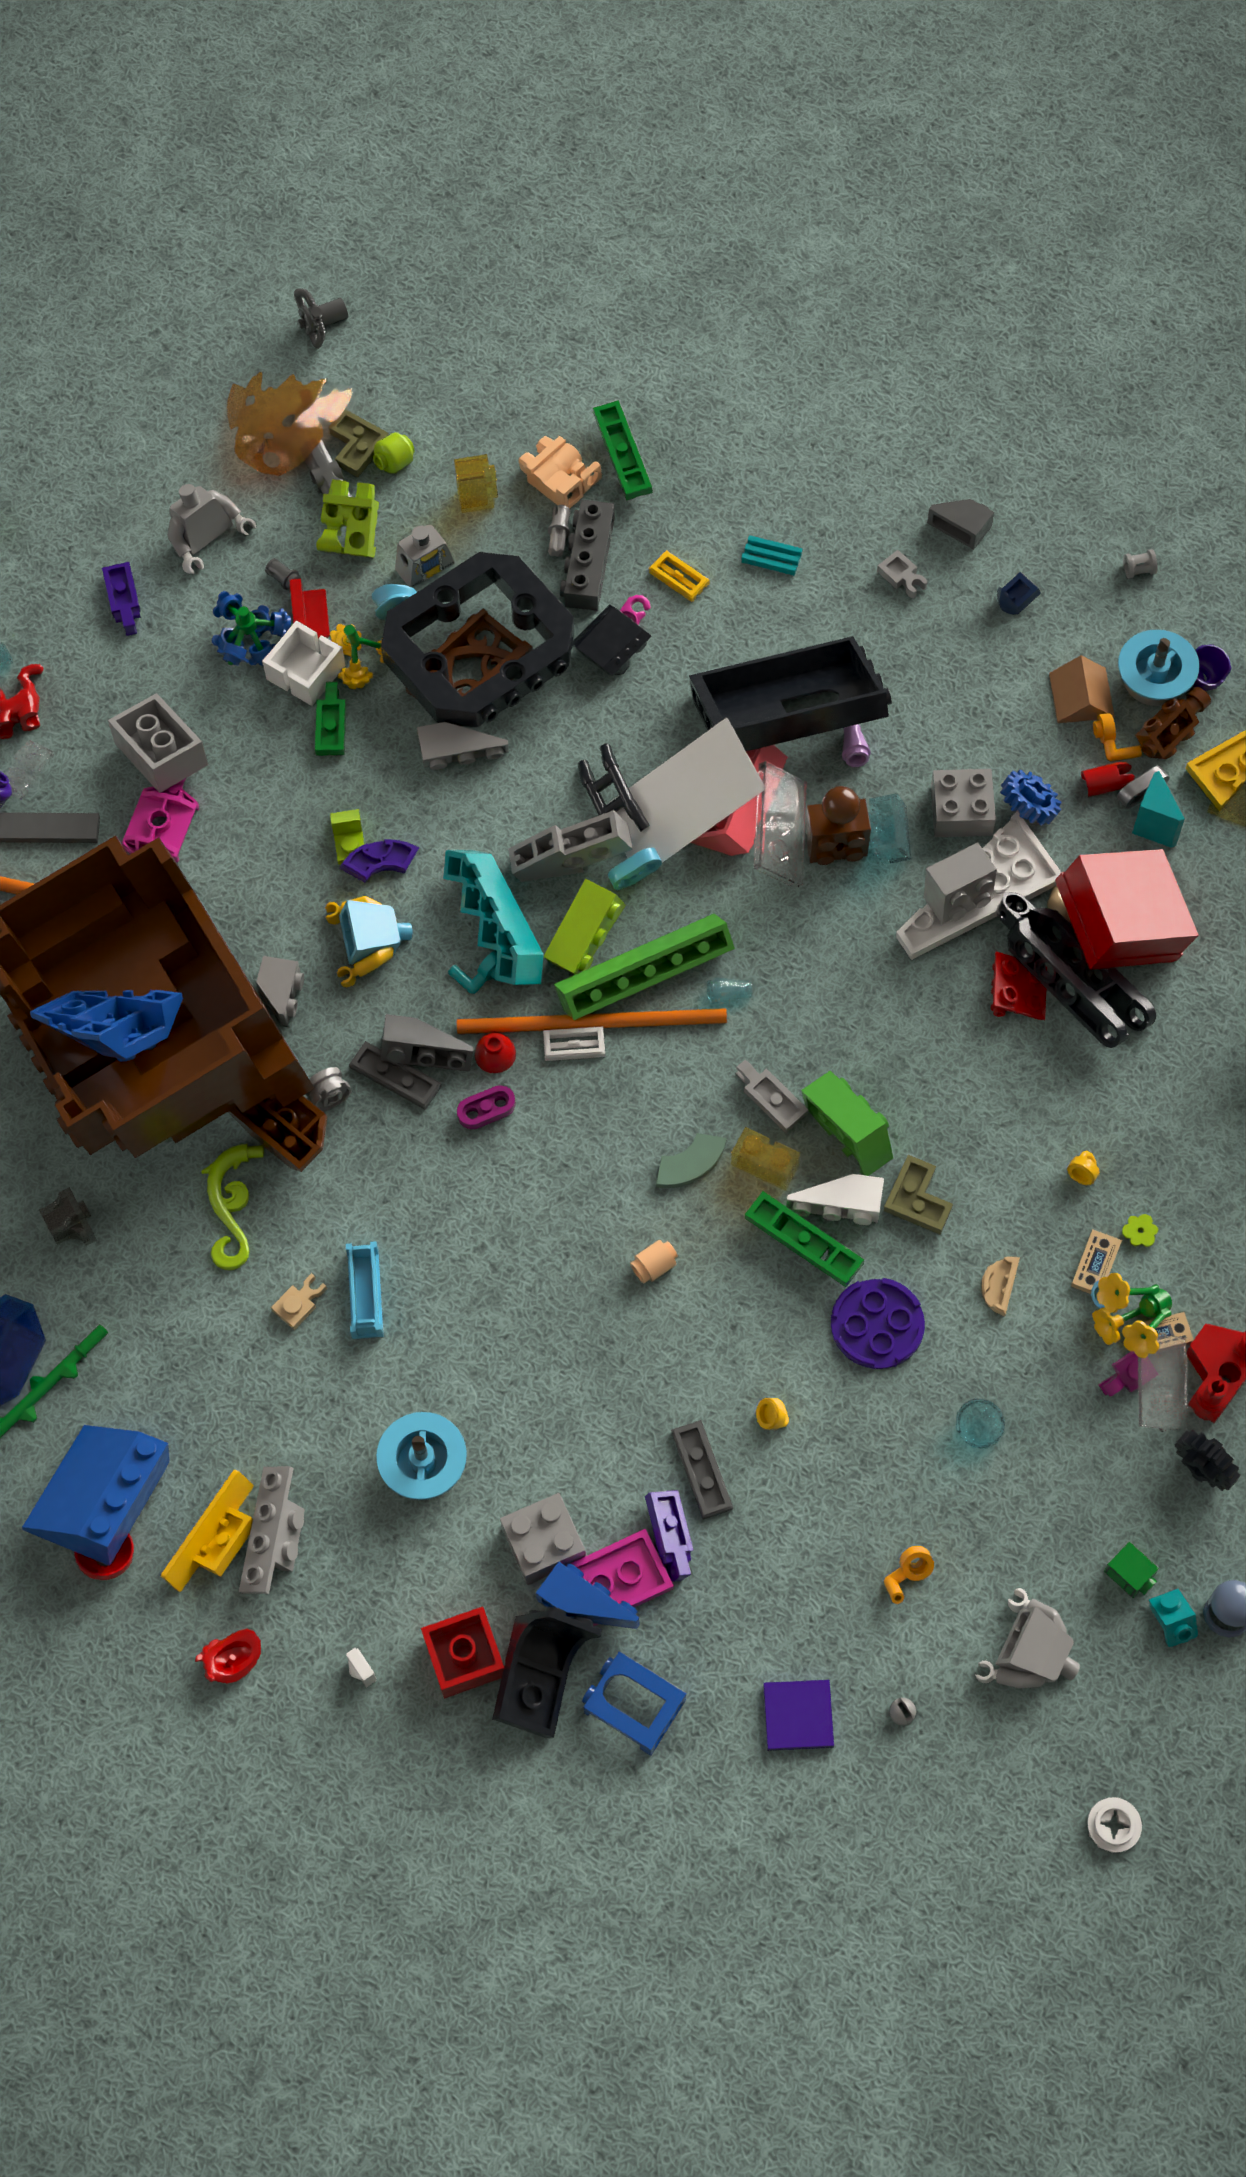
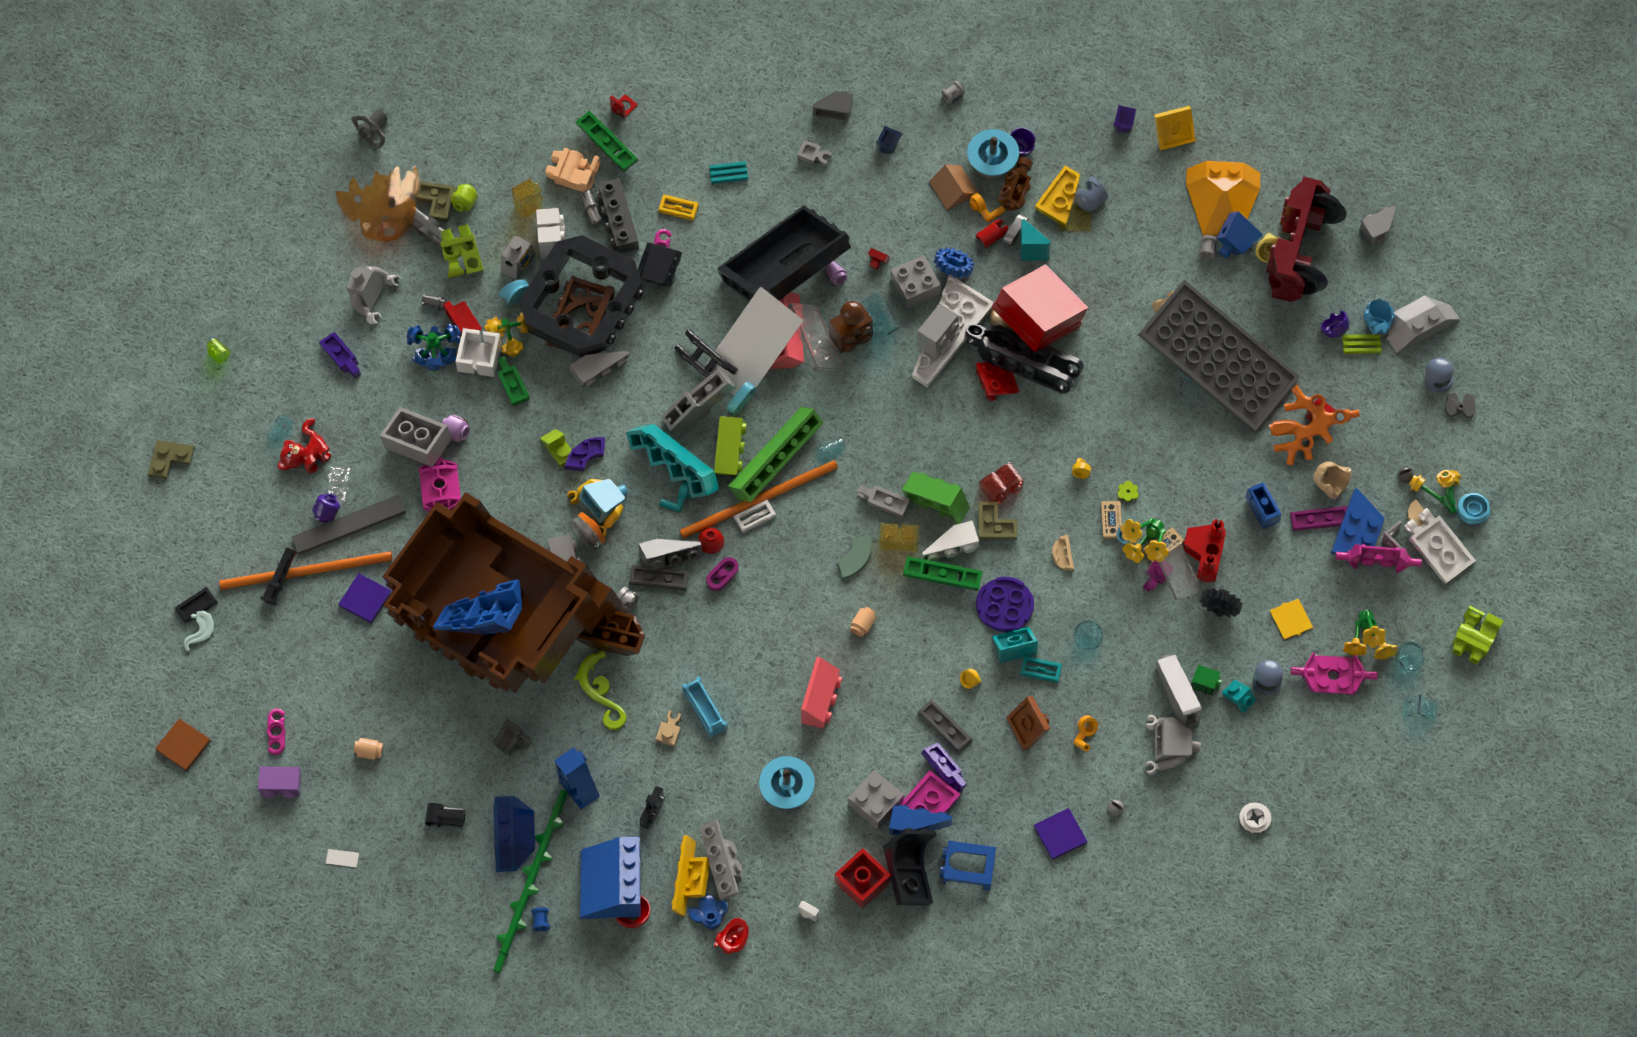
camera: 25 degrees left, 0 degrees up
(124, 1314) = (576, 777): none -> blue wedge
(212, 1405) = (652, 804): none -> black hinge
(218, 1595) = (708, 908): none -> blue plate
(222, 753) = (458, 427): none -> lavender head
(323, 968) = (587, 531): none -> clear piece
(486, 535) = (550, 229): none -> white piece
(537, 1342) = (820, 694): none -> coral slope
(660, 413) = (619, 108): none -> red bracket
(827, 1520) = (1028, 723): none -> dark orange tile
(864, 1391) = (1015, 644): none -> teal slope
(877, 1453) = (1040, 669): none -> teal tile
(924, 749) = (877, 258): none -> red tile
(955, 1141) = (1001, 483): none -> clear red brick
(1081, 1569) = (1179, 691): none -> slope

